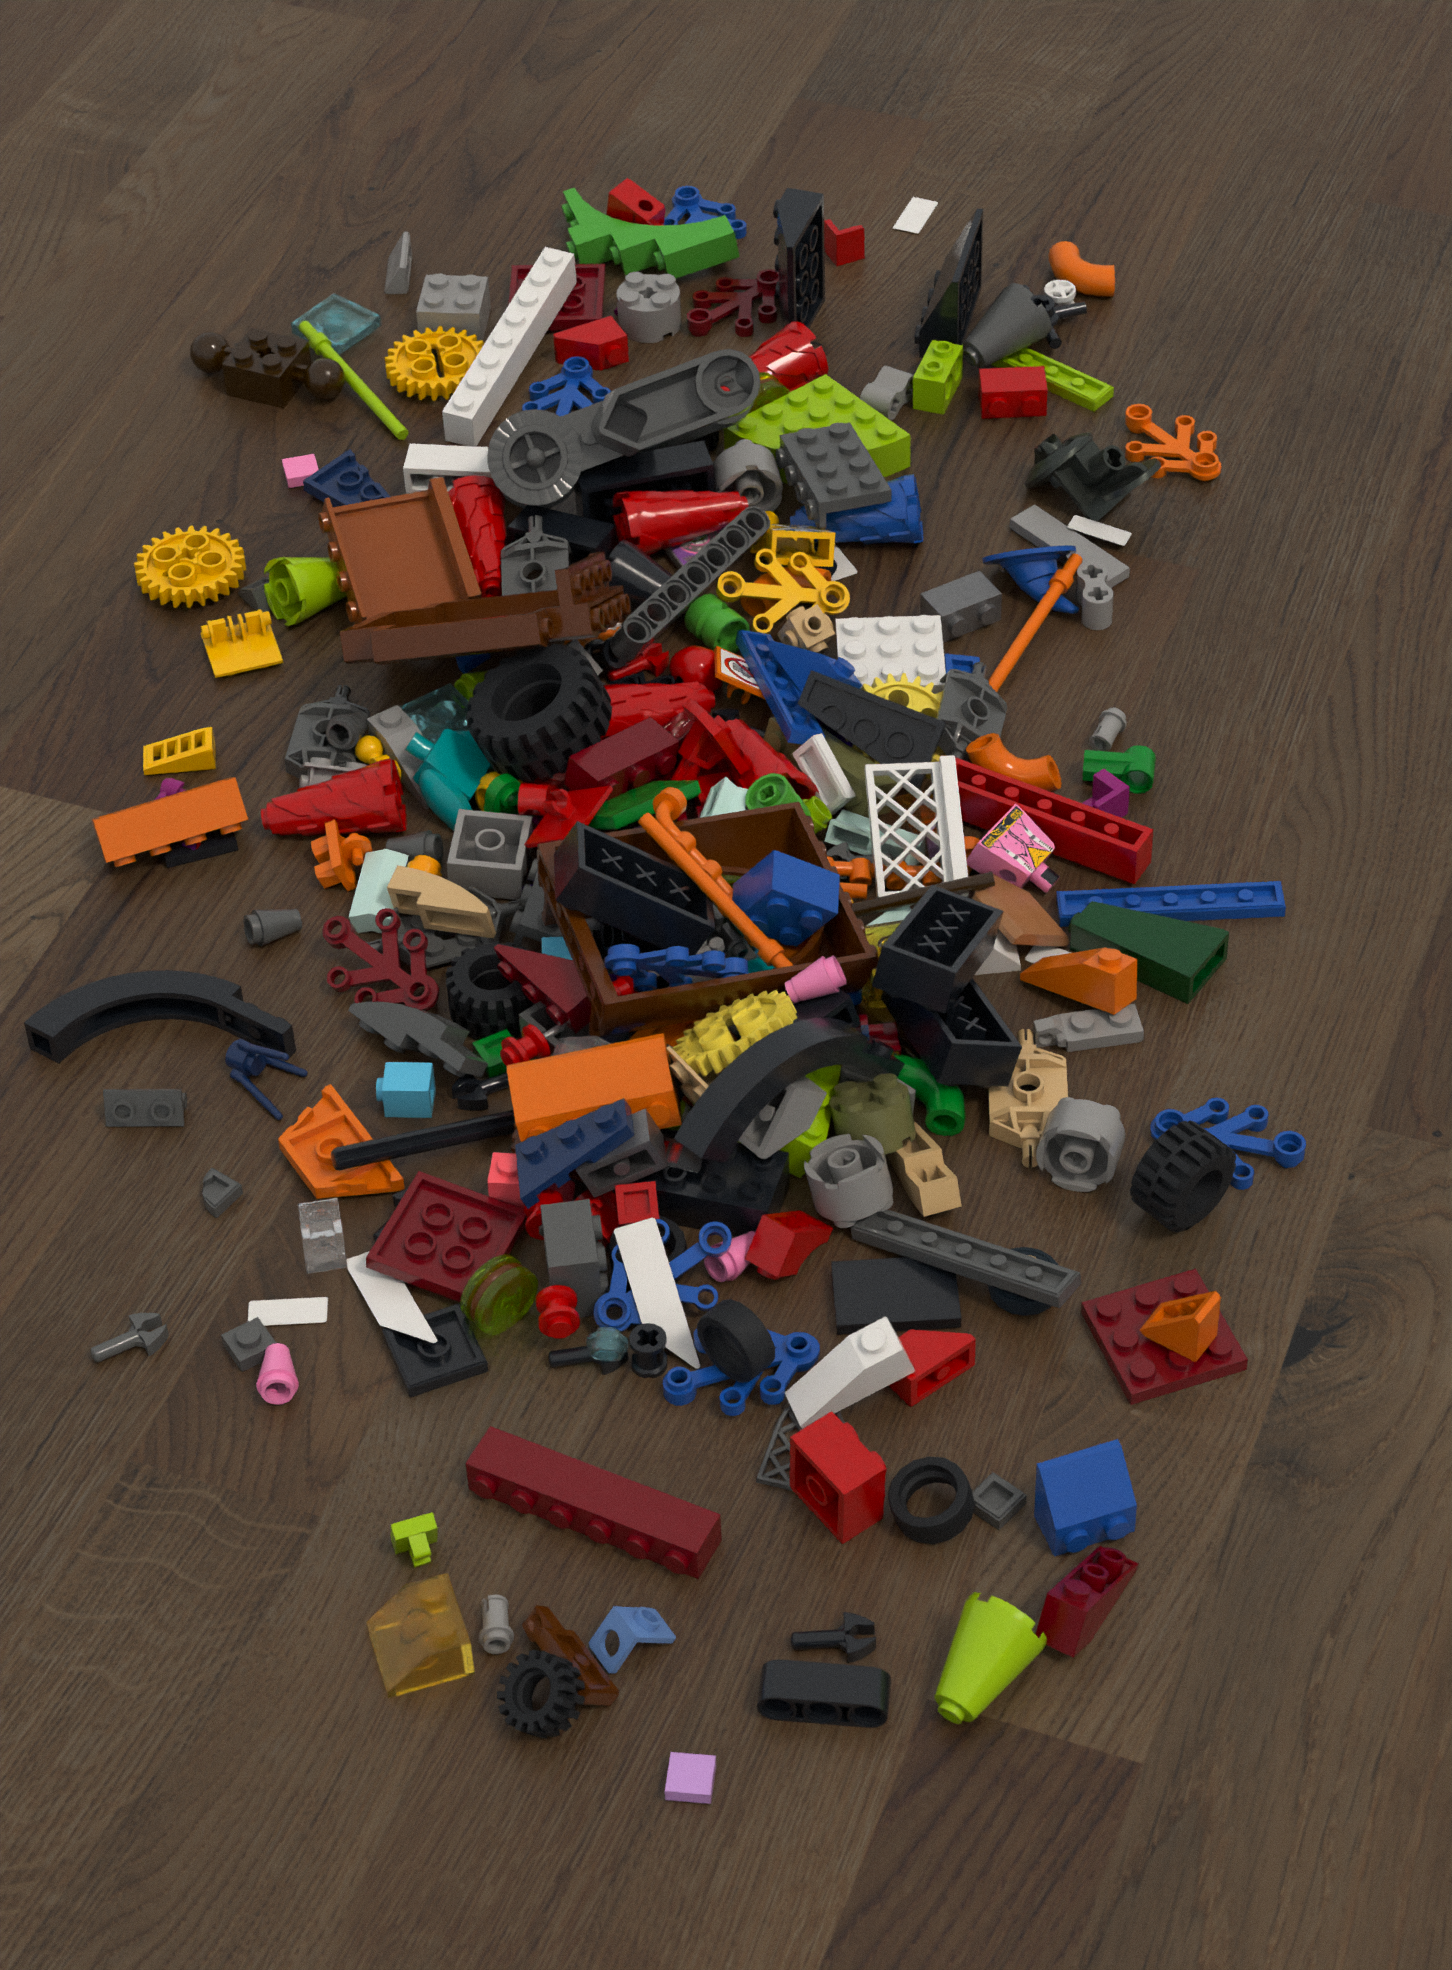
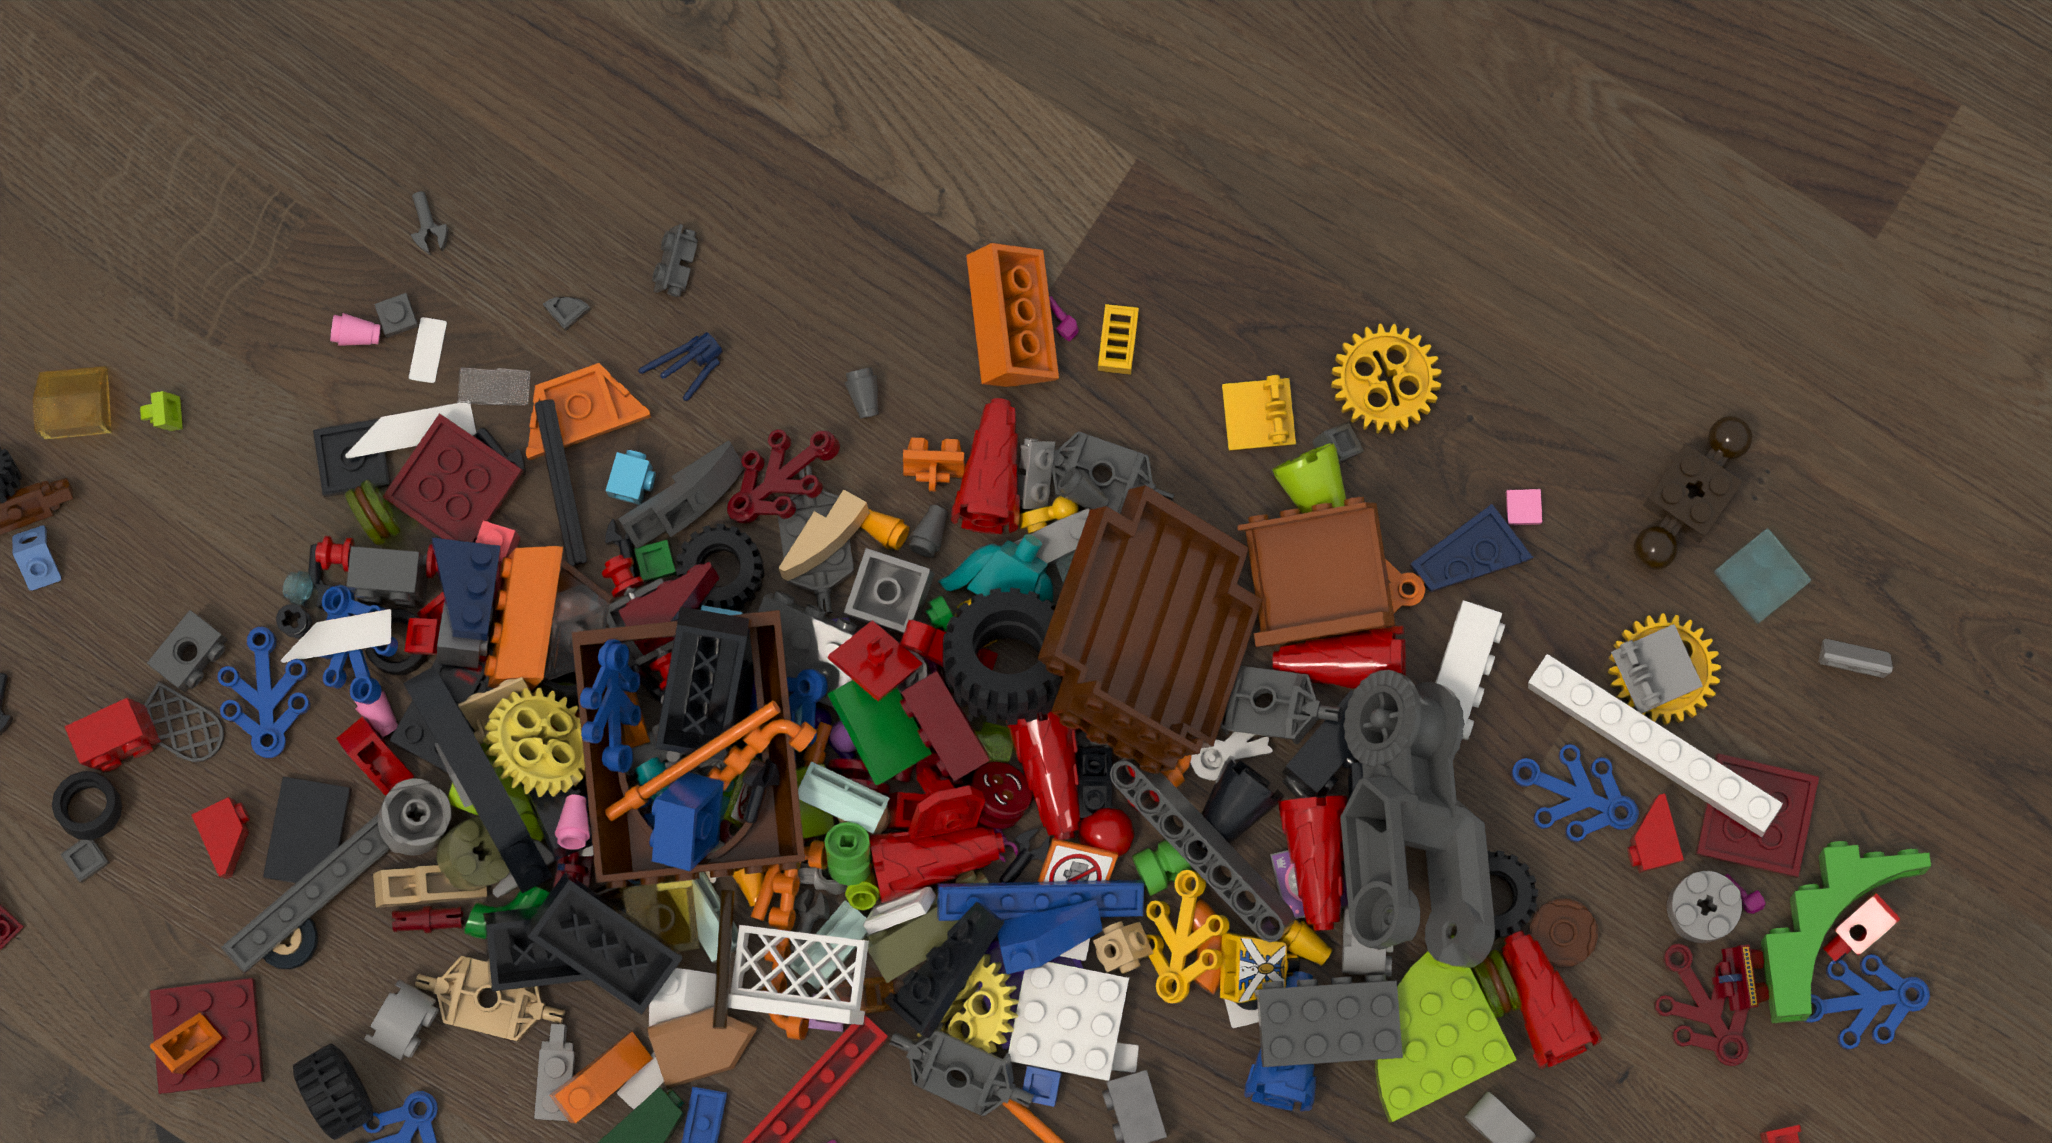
camera: 105 degrees right, 35 degrees up
(150, 996) = (789, 311): black arch -> none
(322, 346) = (1717, 552): lime bar -> none
(372, 891) = (884, 490): light aqua piece -> none
(440, 348) = (1656, 669): none -> light grey hinge
(455, 303) = (1751, 701): light grey brick -> none
(496, 1633) = (71, 458): light grey pin -> none
(594, 1502) = (158, 549): dark red brick -> none
(705, 274) = (1739, 978): none -> dark red hips
(712, 1445) = (169, 657): none -> dark grey brick
(725, 854) = (759, 777): none -> black bar
(736, 1340) = (257, 684): black tyre -> none
(800, 255) = (1691, 1069): black slope -> none
(850, 1372) = (207, 771): white slope -> none
(960, 1163) = (427, 919): none -> dark red pin
(992, 754) = (885, 1094): orange cylinder -> none
(1015, 852) = (768, 1062): bright pink torso -> none
(1084, 1498) = (45, 919): blue slope -> none

